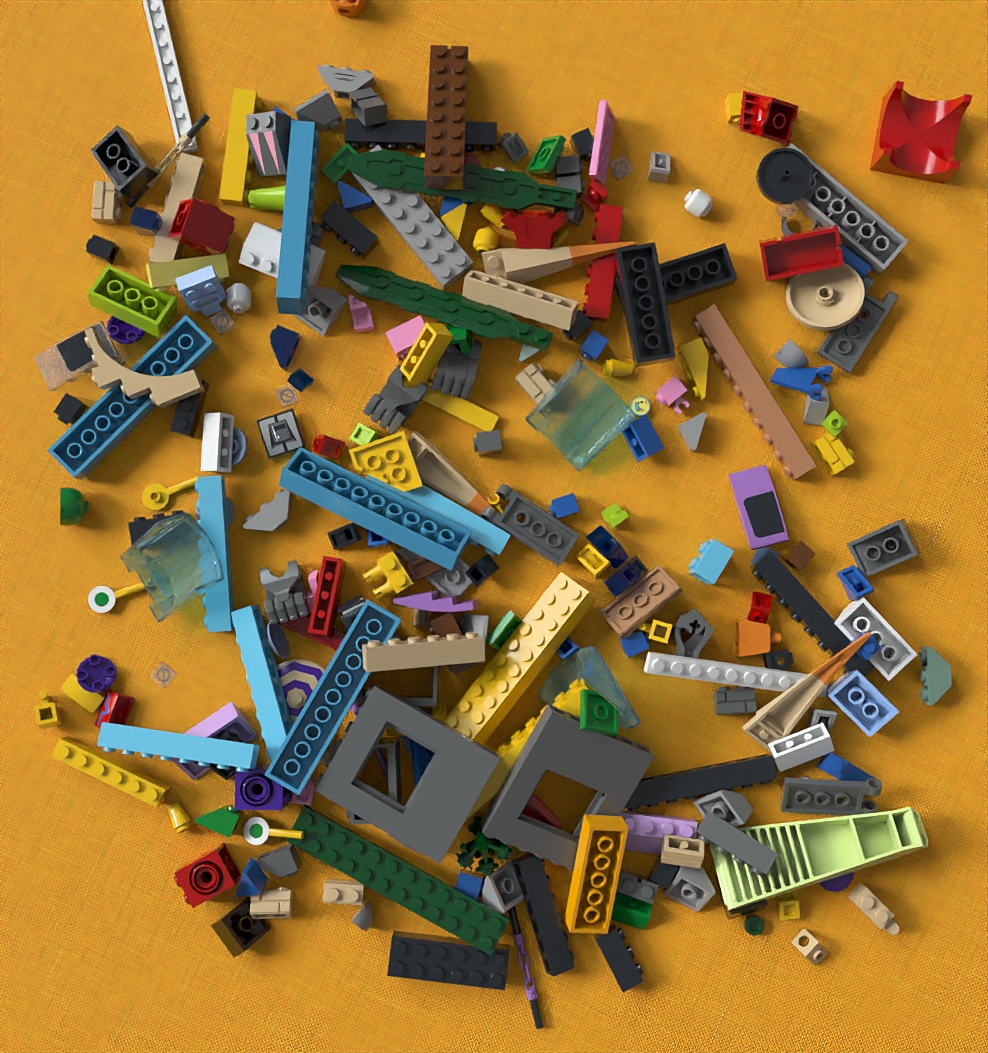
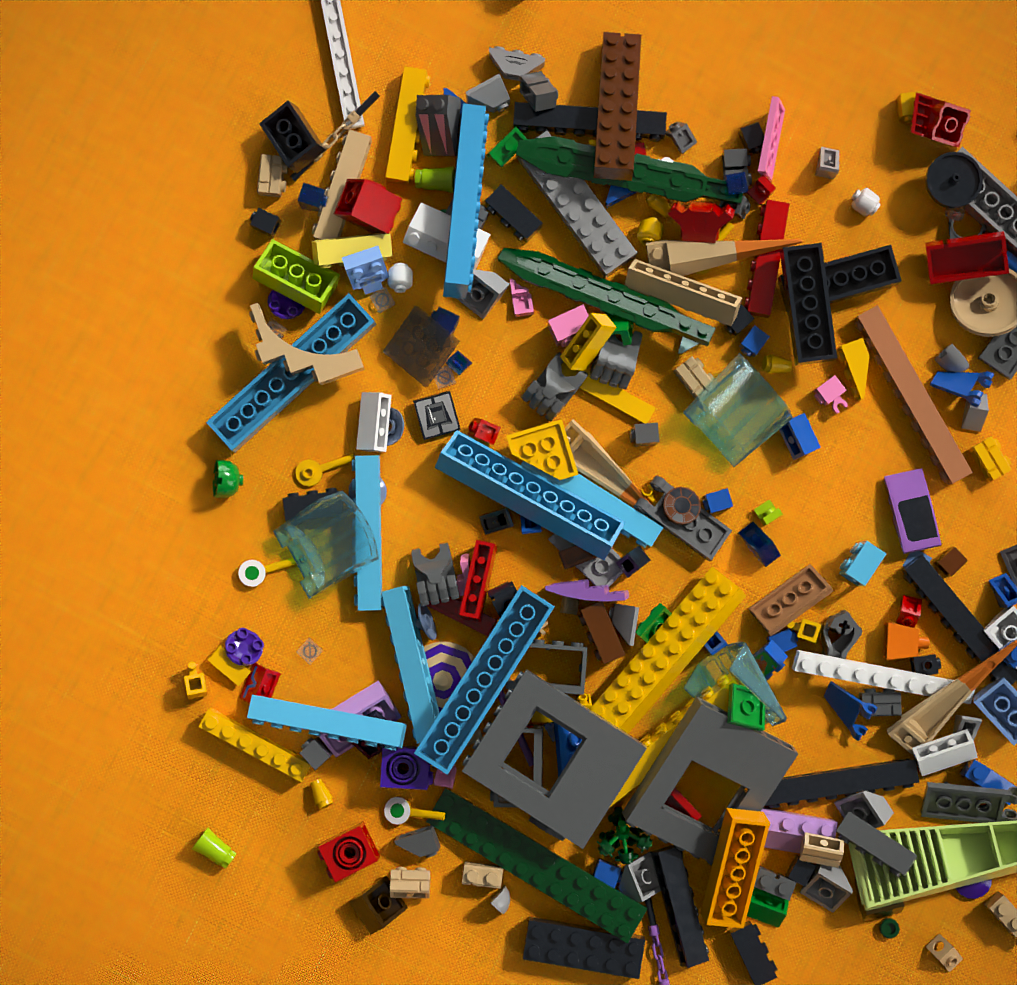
camera: 10 degrees right, 0 degrees up
(70, 409) = (227, 382): black brick -> none
(72, 357) = (232, 329): clear slope -> none
(73, 878) = (214, 849): none -> lime plant
(170, 777) = (315, 752): none -> dark grey piece
(188, 413) = (345, 392): black brick -> none
(221, 820) = (363, 797): green slope -> none
(252, 880) = (393, 859): blue slope -> none
(261, 365) = (421, 346): none -> clear smoke plate
(272, 514) = (424, 496): light grey slope -> none
(353, 199) = (518, 182): blue slope -> none
(364, 435) = (520, 421): lime bracket -> none
(395, 572) = (545, 558): yellow brick -> none
(423, 652) = (575, 640): tan brick -> none
(454, 221) = (619, 209): yellow slope -> none
(527, 512) = (681, 506): none -> tile
(546, 155) = (715, 147): green plate -> none
(568, 188) = (736, 183): none -> clear blue plate
(592, 560) = (743, 556): yellow slope -> none
(621, 167) = (789, 161): clear tile -> none
(621, 662) = (770, 659): none -> blue brick
(625, 576) = (776, 574): clear blue slope -> none
(640, 406) = (798, 404): tile -> none
(691, 431) = (848, 431): light grey slope -> none
(703, 707) = (848, 708): none -> blue flag
(788, 906) = (925, 910): yellow slope -> none
(834, 423) = (992, 430): lime bracket -> none

